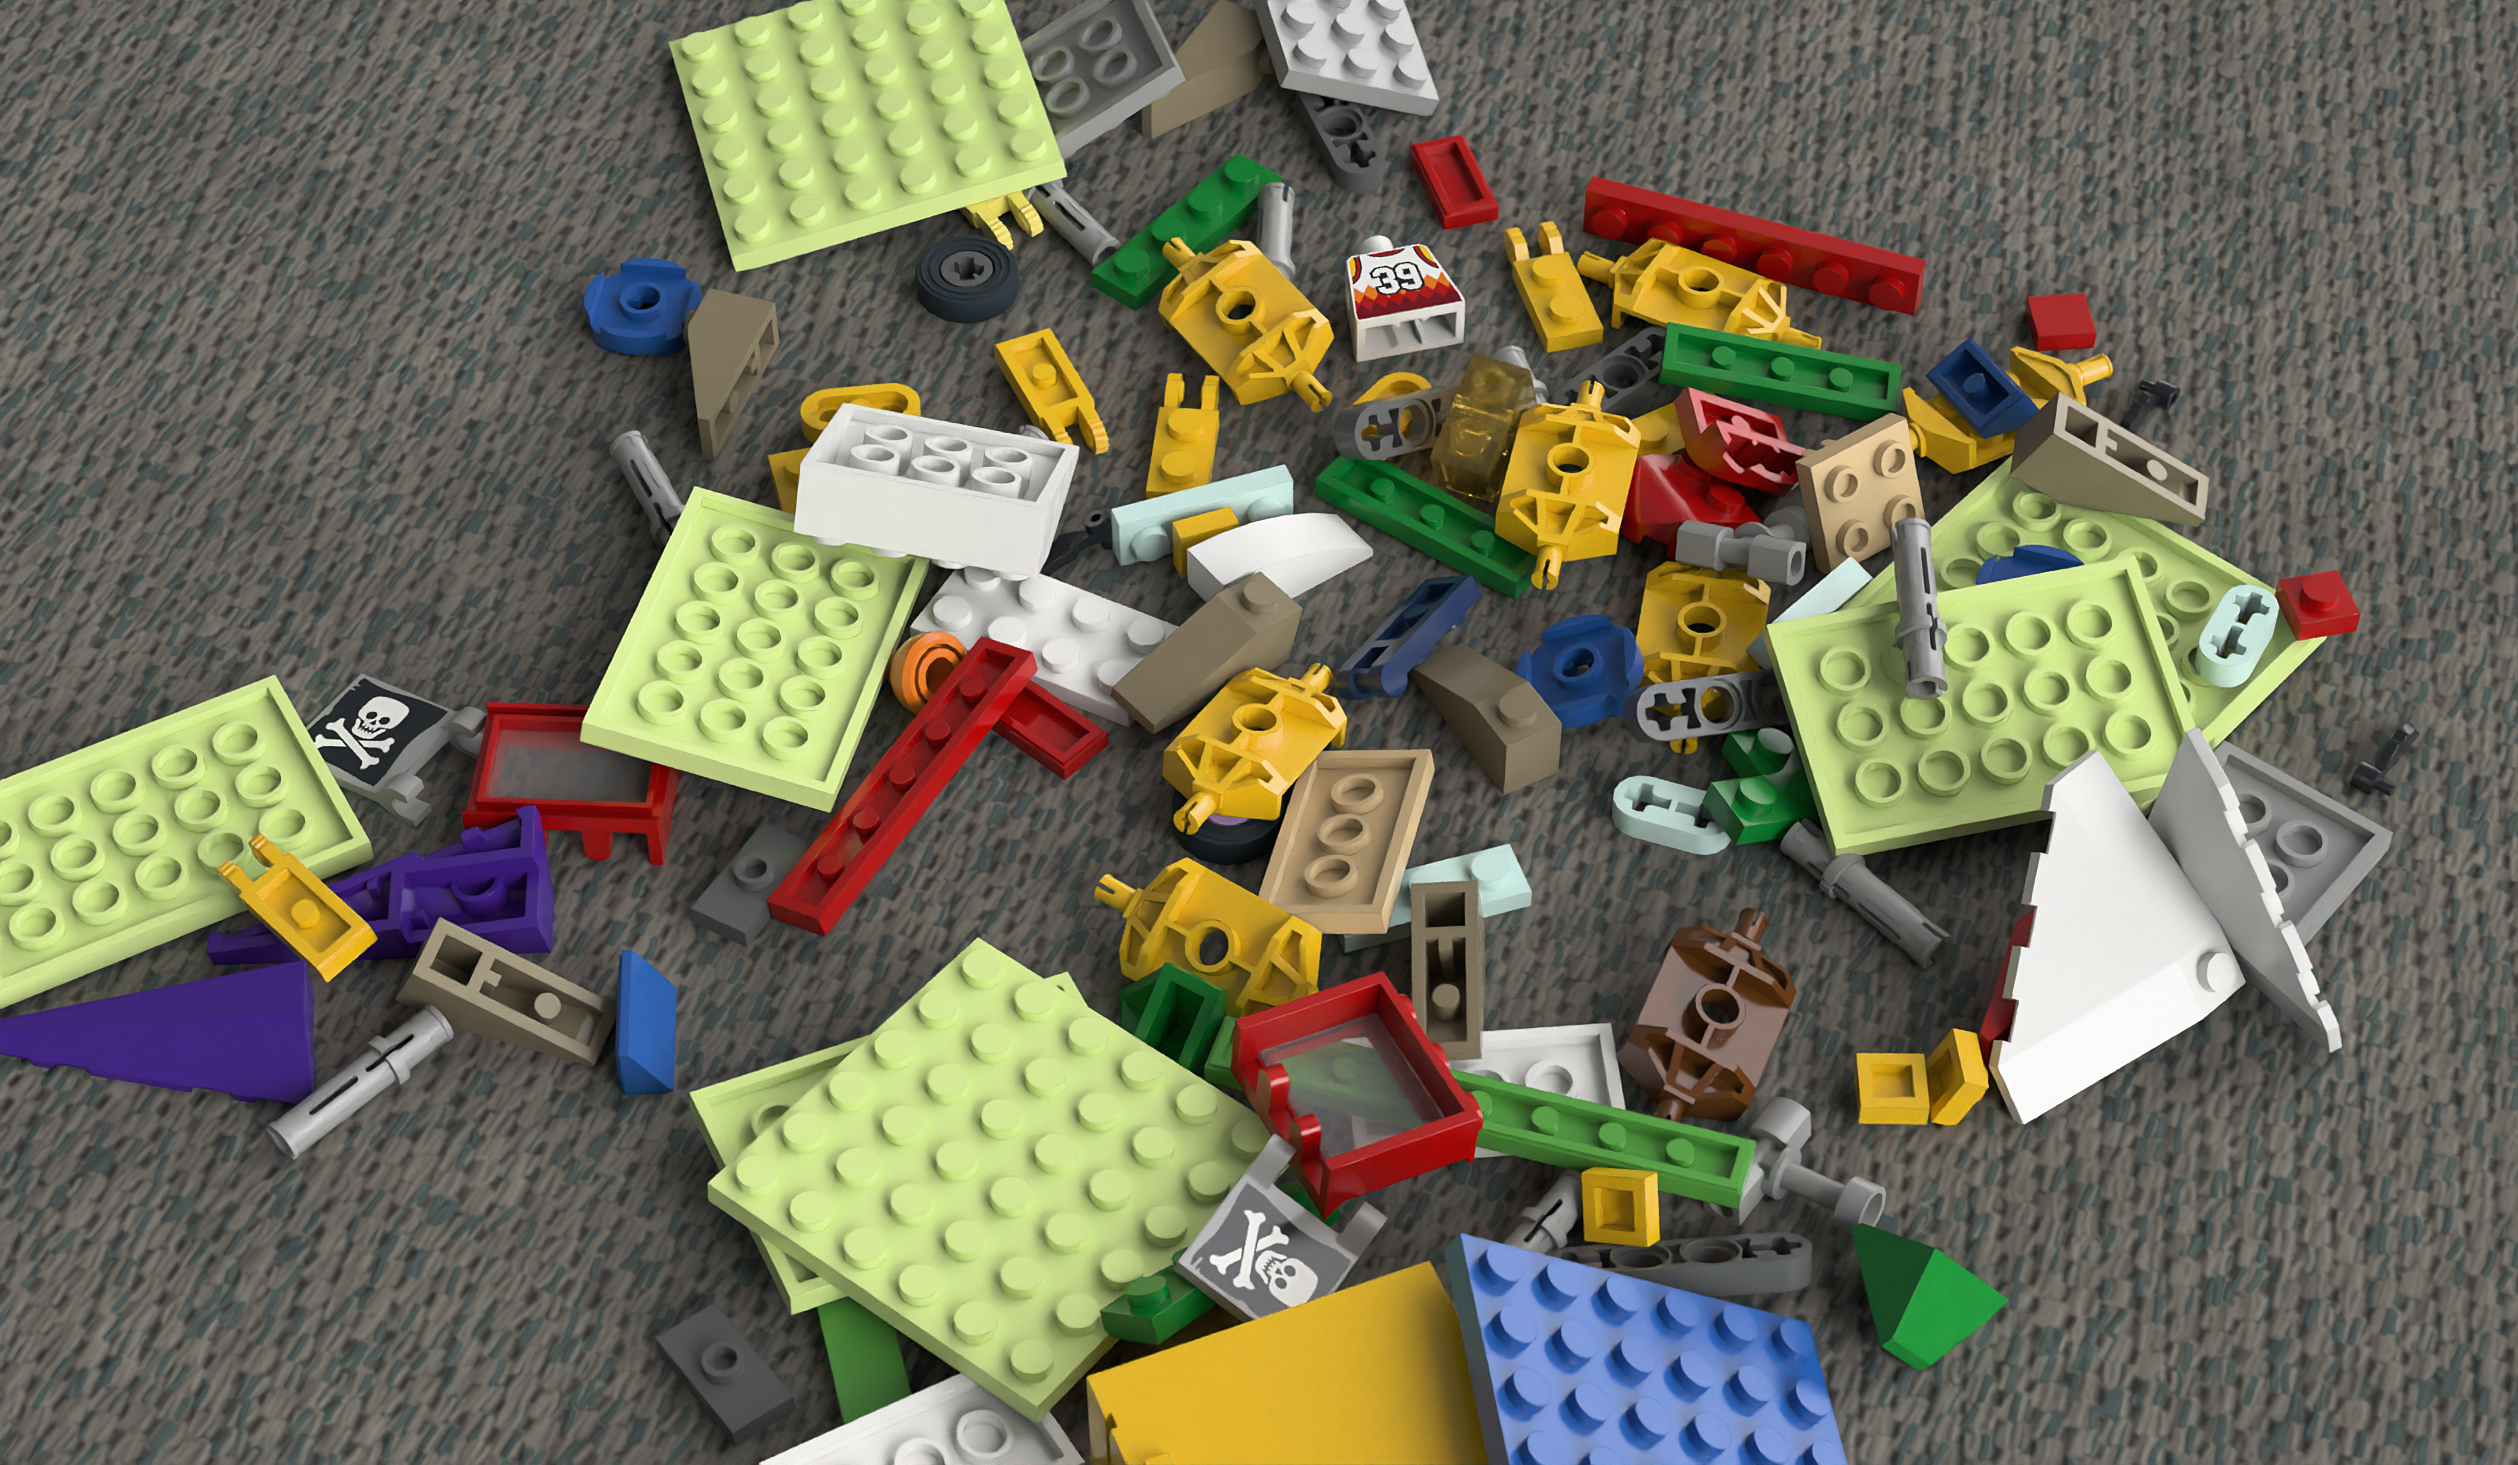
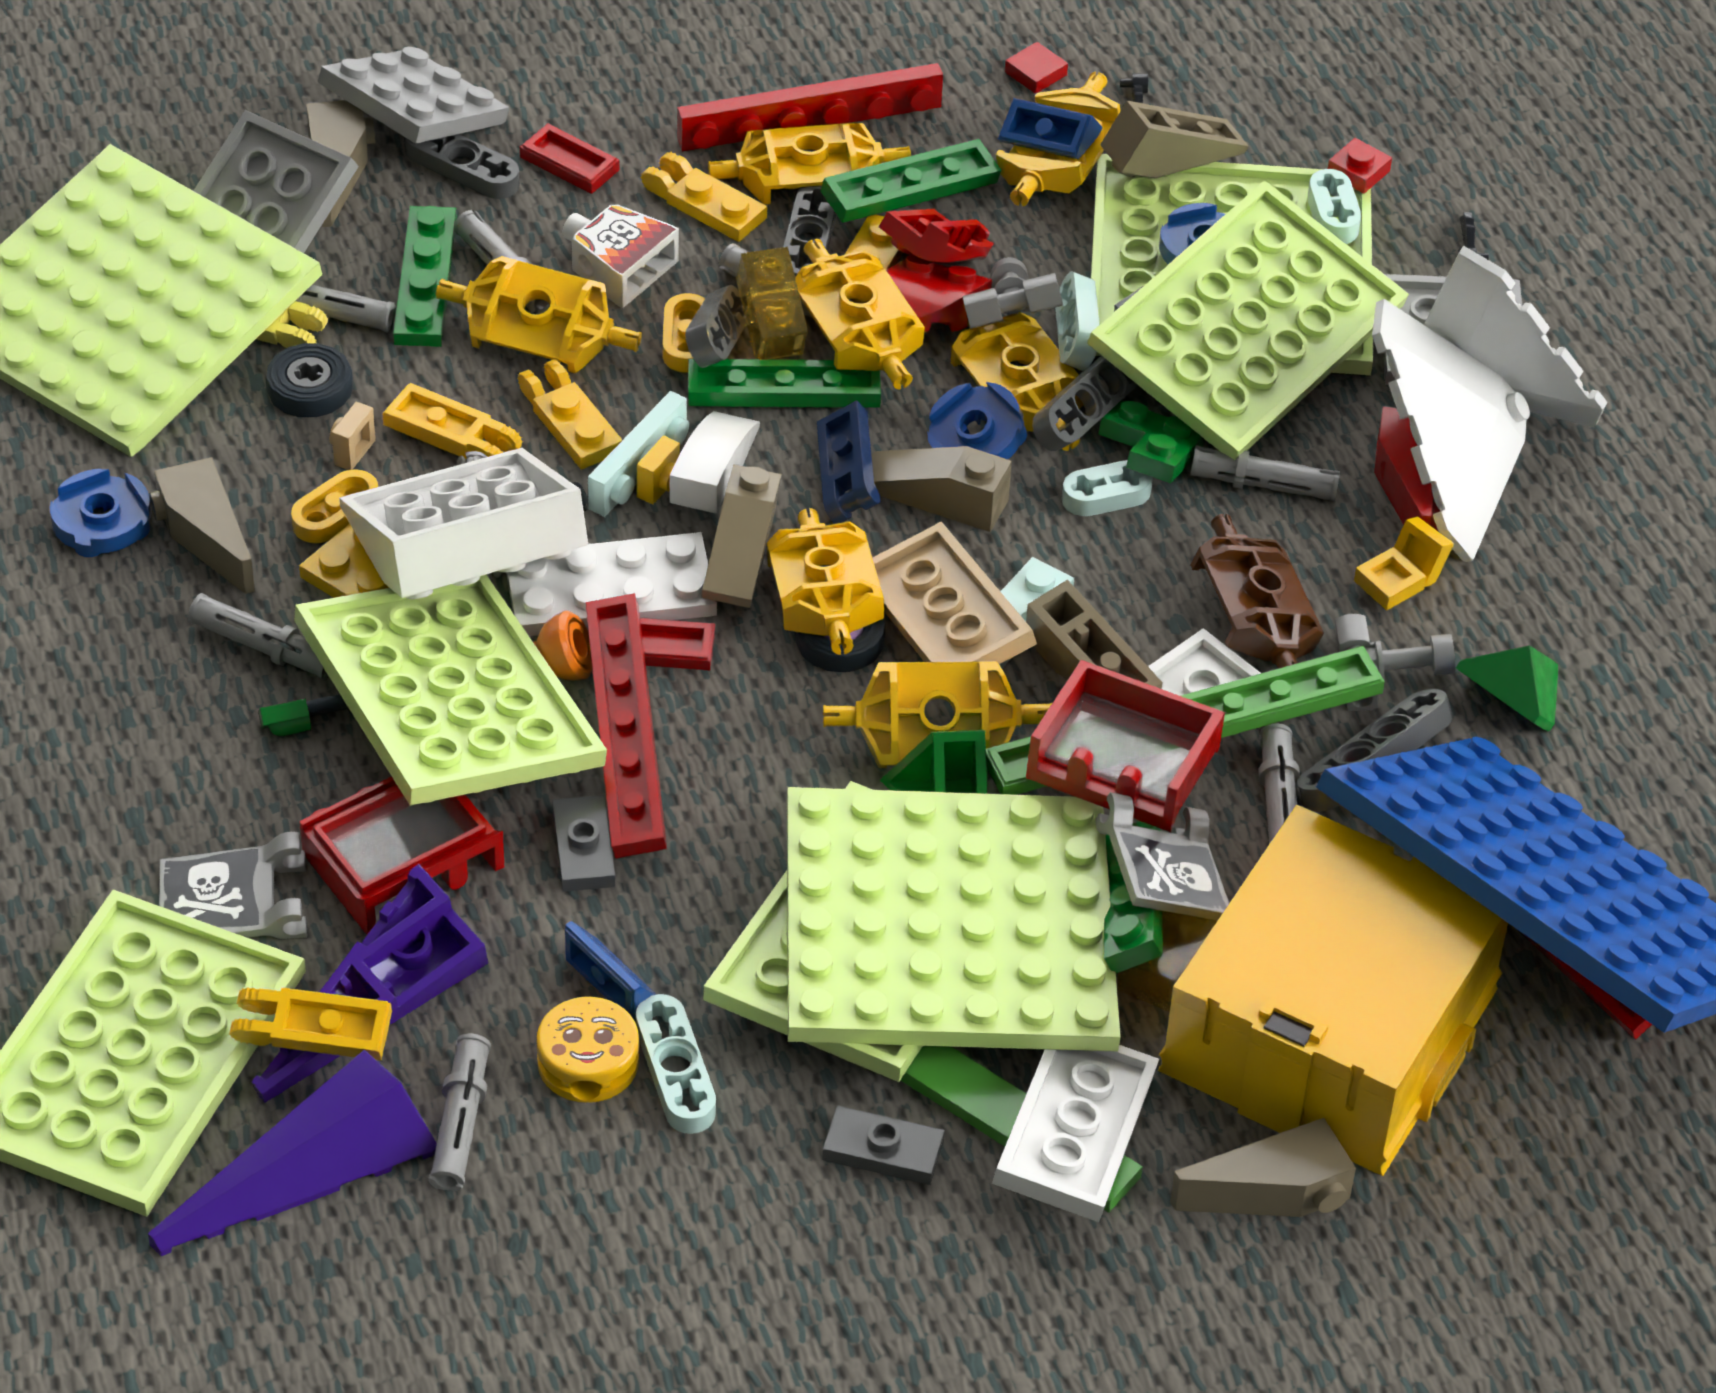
camera: 40 degrees left, 0 degrees up
(506, 996) = (493, 1000): dark tan slope -> none
(537, 1093) = (587, 1049): none -> yellow head
(606, 599) = (294, 716): none -> green piece
(607, 1134) = (679, 1043): none -> light aqua beam
(944, 353) = (352, 435): none -> tan plate
(1620, 1206) = (1319, 729): yellow plate -> none
(1859, 491) = (1038, 224): tan plate -> none
(1920, 629) = (1189, 287): light grey pin -> none

